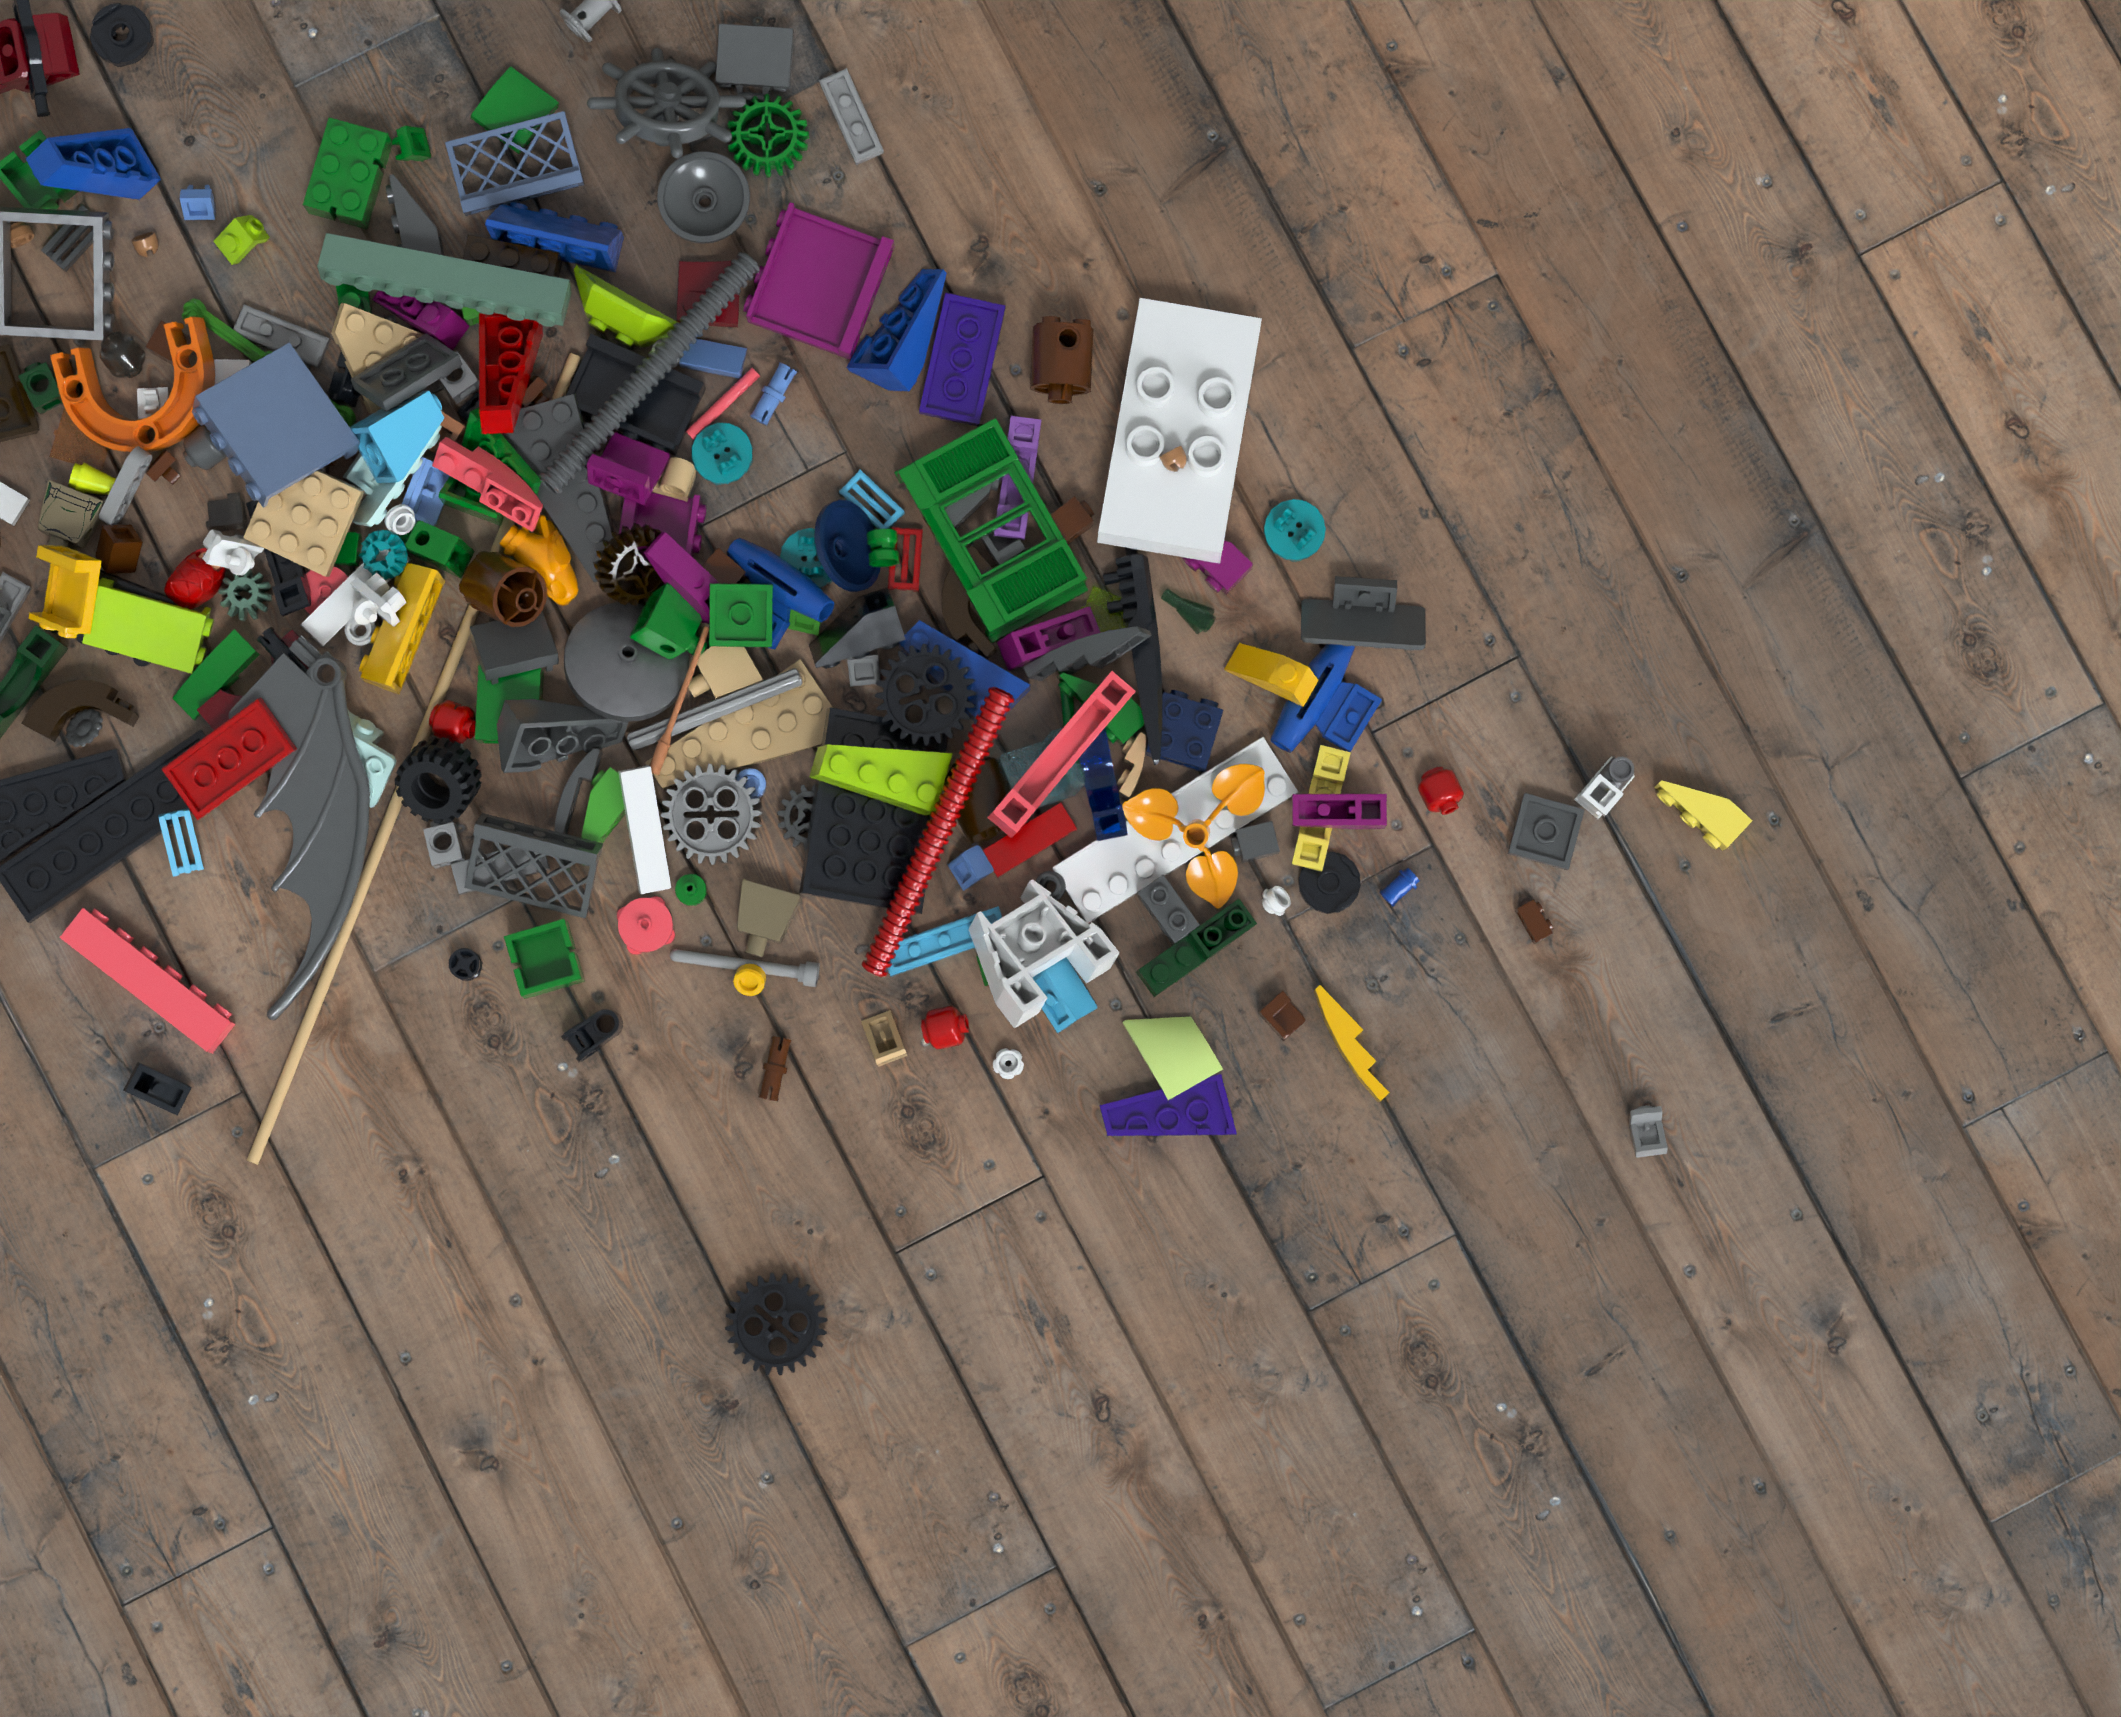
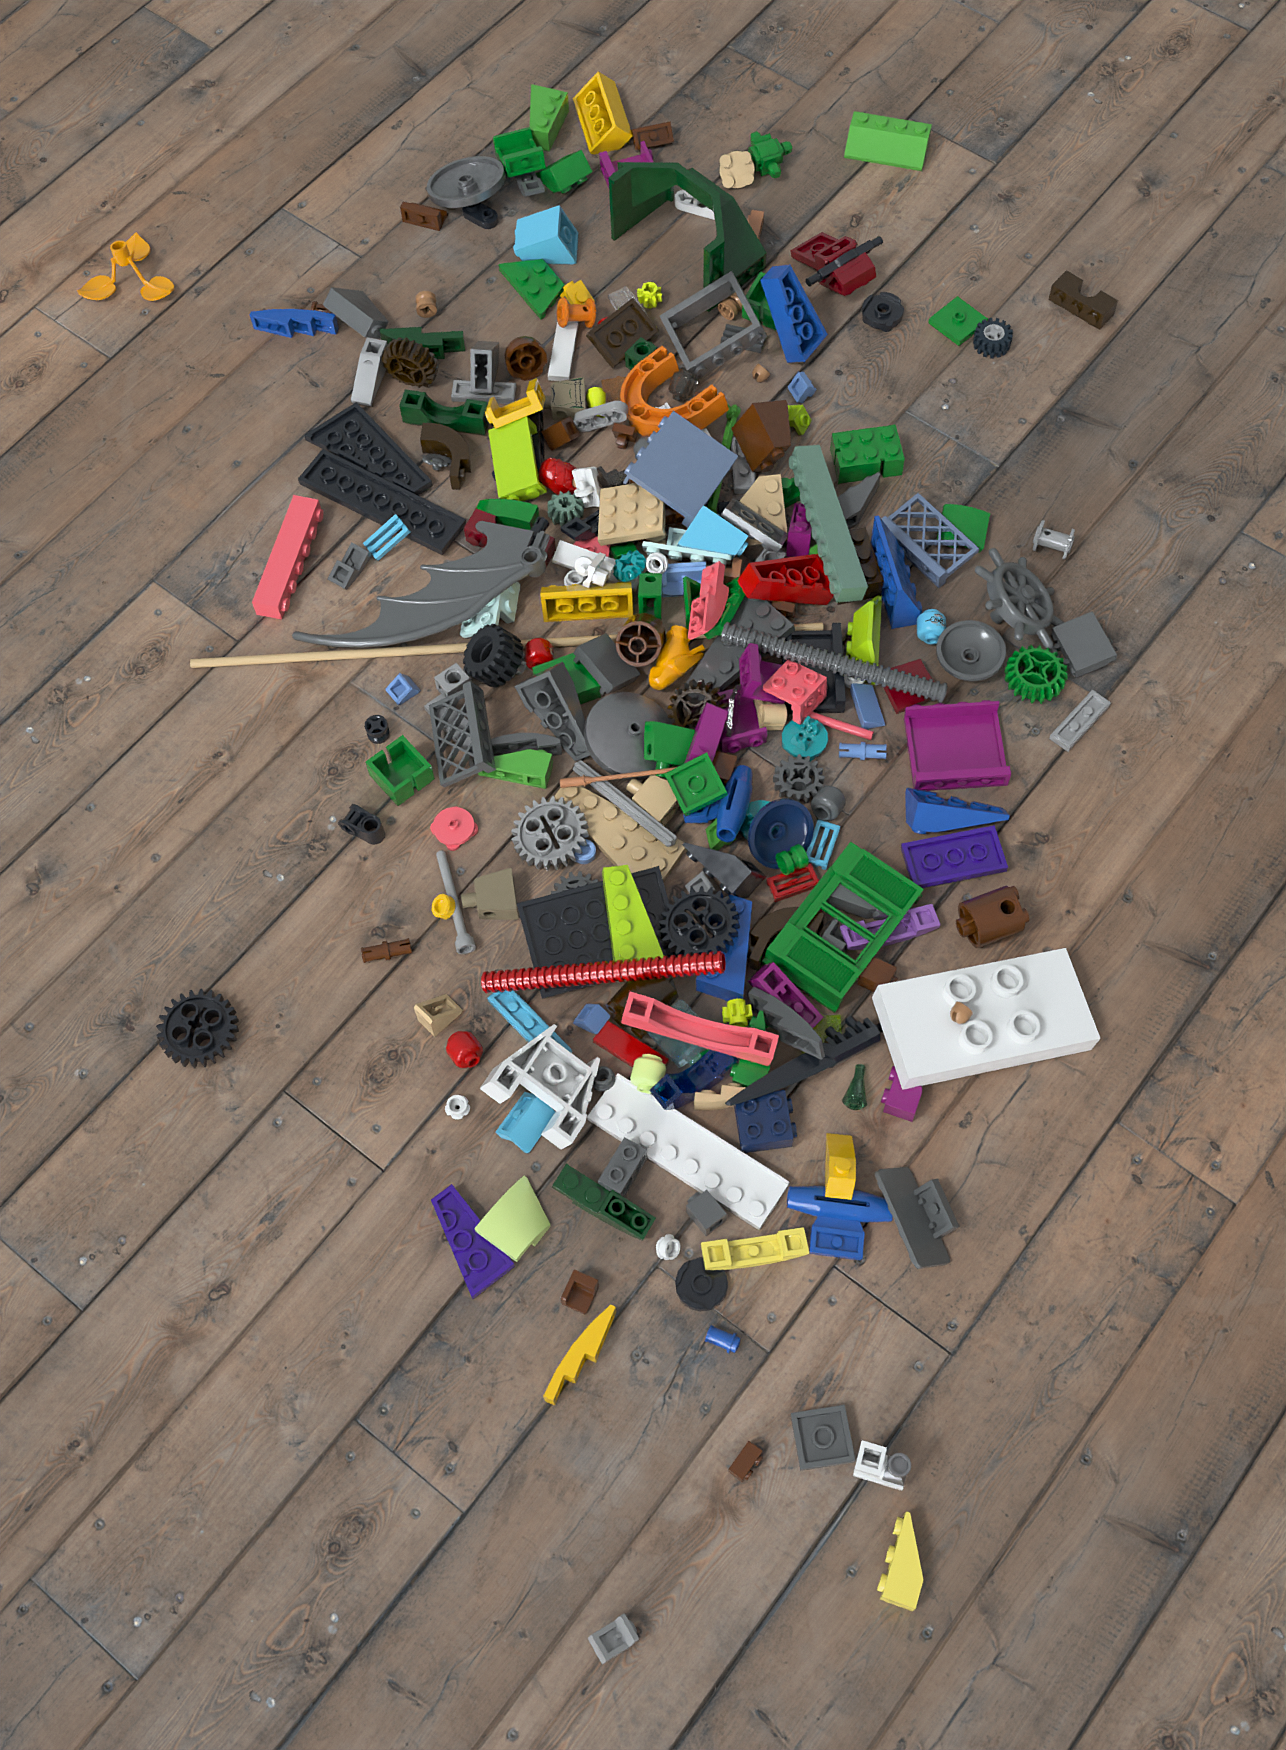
camera: 70 degrees right, 20 degrees down
(157, 1088) = (217, 585): black slope -> none
(199, 906) = (350, 567): none -> dark grey slope
(229, 758) = (451, 534): red tile -> none
(266, 290) = (763, 434): none -> reddish brown slope
(412, 144) = (907, 481): green tile -> none
(417, 911) = (402, 689): none -> medium blue slope
(643, 225) = (930, 626): none -> medium azure head
(644, 829) = (518, 793): white tile -> none
(659, 433) = (799, 687): none -> coral bracket
(659, 523) = (733, 711): none -> clear smoke piece
(693, 897) = (491, 845): green tile -> none
(763, 491) = (798, 777): none -> dark grey gear
(825, 469) = (828, 803): none -> dark grey head
(1043, 700) = (737, 1012): none -> neon yellow gear
(1073, 833) = (647, 1072): none -> yellowish green head
(1210, 875) = (692, 1125): light orange plant -> none
(1305, 540) = (953, 1148): teal plate -> none
(1340, 811) = (759, 1262): magenta slope -> none
(1440, 790) = (813, 1336): red head -> none

